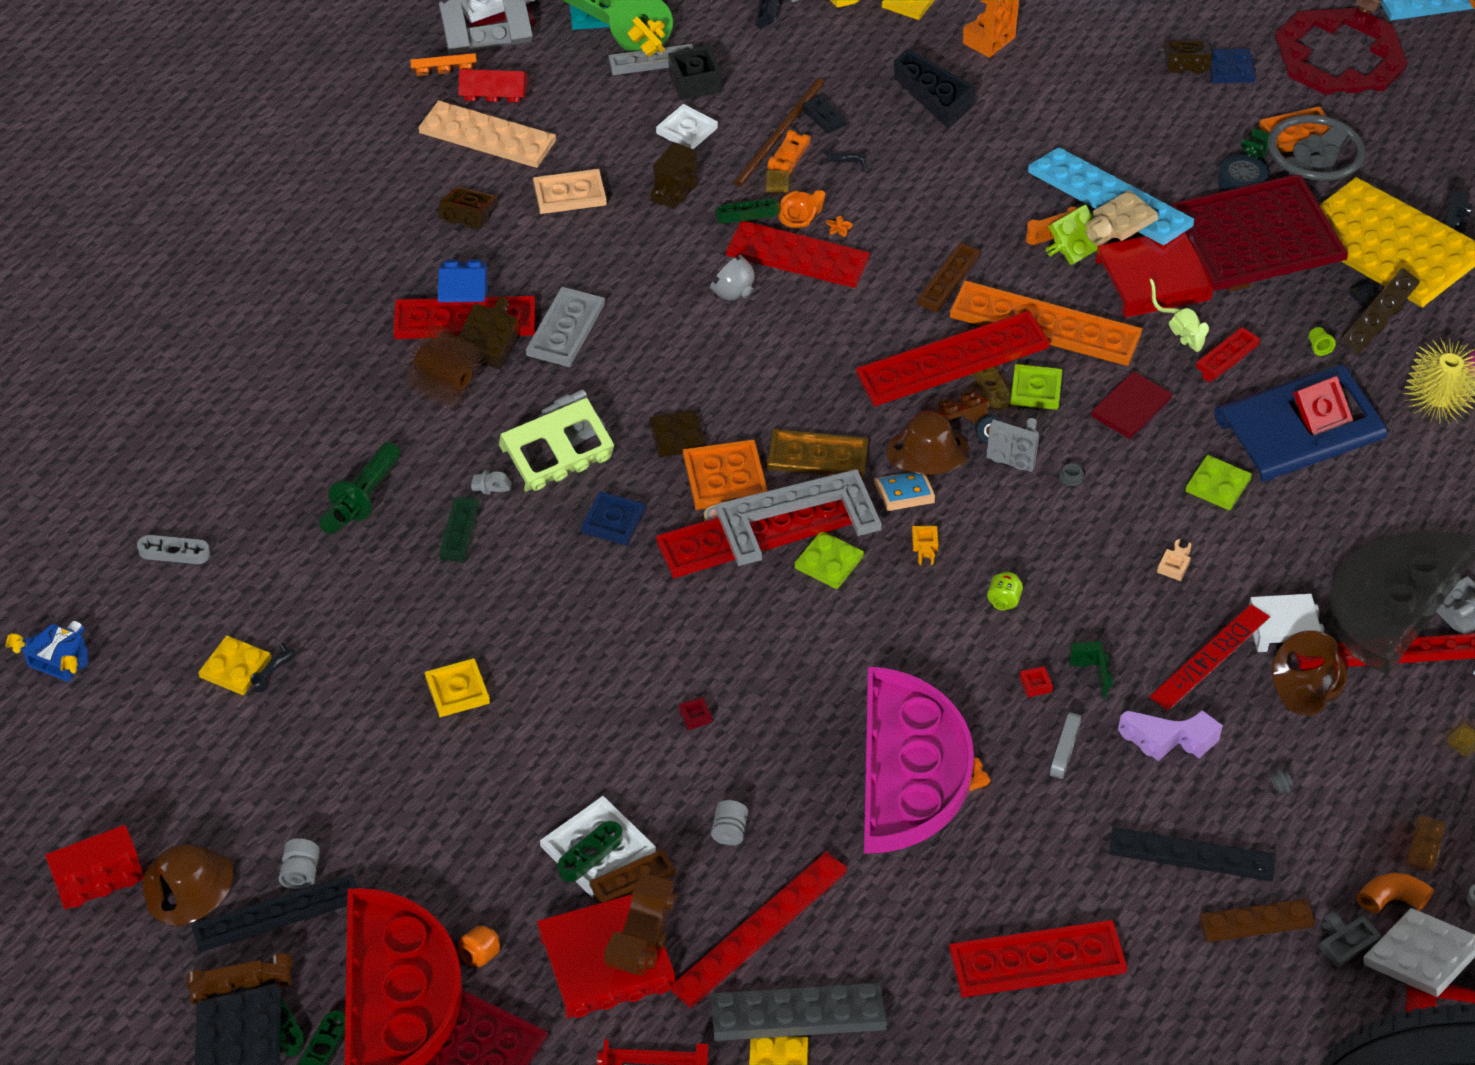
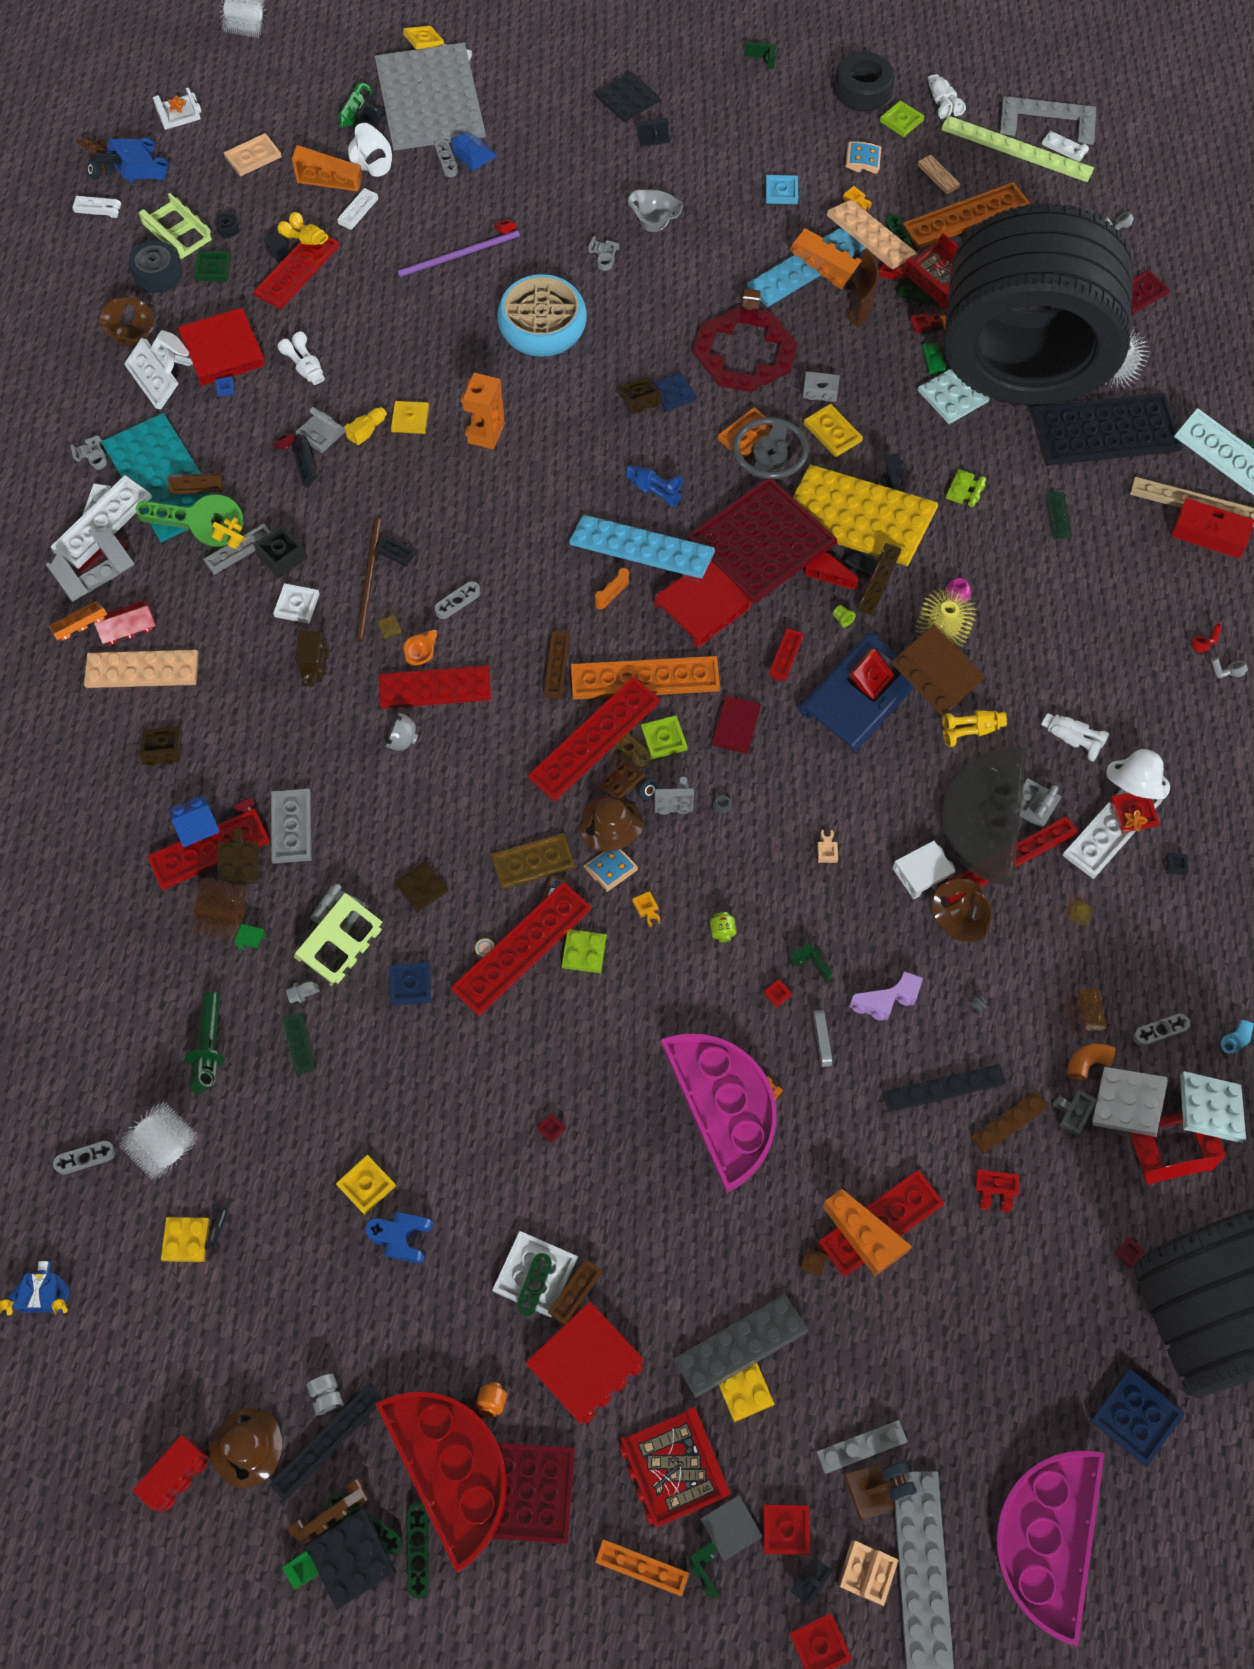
camera: 25 degrees left, 15 degrees up
(178, 1021) = (300, 1570): none -> green panel
(258, 552) = (158, 1140): none -> white piece
(461, 408) = (249, 936): none -> green panel
(463, 746) = (395, 1235): none -> blue piece
(525, 288) = (244, 805): none -> dark red plate
(569, 191) = (233, 698): light nougat plate -> none
(643, 932) = (610, 1342): reddish brown brick -> none
(723, 472) = (474, 909): orange plate -> none
(729, 822) = (620, 1211): light grey piece -> none
(739, 512) = (570, 889): light grey plate -> none
(747, 210) = (365, 672): dark green beam -> none
(758, 929) = (680, 1288): red plate -> none
(789, 153) = (385, 596): orange plate -> none
(839, 226) = (454, 649): orange plant -> none
(844, 157) = (431, 583): black piece -> none
(874, 175) = (454, 607): none -> light grey beam
(933, 966) = (814, 1262): none -> reddish brown plate
(934, 87) = (469, 496): black wedge -> none
(1012, 956) = (865, 1232): none -> orange wedge
(1071, 236) = (634, 591): lime plate -> none
(1119, 218) = (662, 569): tan plate -> none
(1150, 136) = (647, 480): none -> blue piece
(1184, 323) = (745, 640): yellowish green animal -> none
(1205, 974) = (998, 1184): none -> red plate
(1209, 657) = (887, 921): red sticker -> none
(1218, 482) = (826, 767): lime plate -> none
(1241, 172) = (724, 483): black wheel -> none
(1257, 145) = (726, 459): dark green bracket -> none
(1327, 290) = (832, 571): none -> red slope
(1406, 158) = (833, 430): none -> yellow plate
(1406, 424) = (938, 670): none -> reddish brown slope
(1413, 111) = (821, 386): none -> light grey brick
(1441, 500) = (983, 723): none -> yellow piece

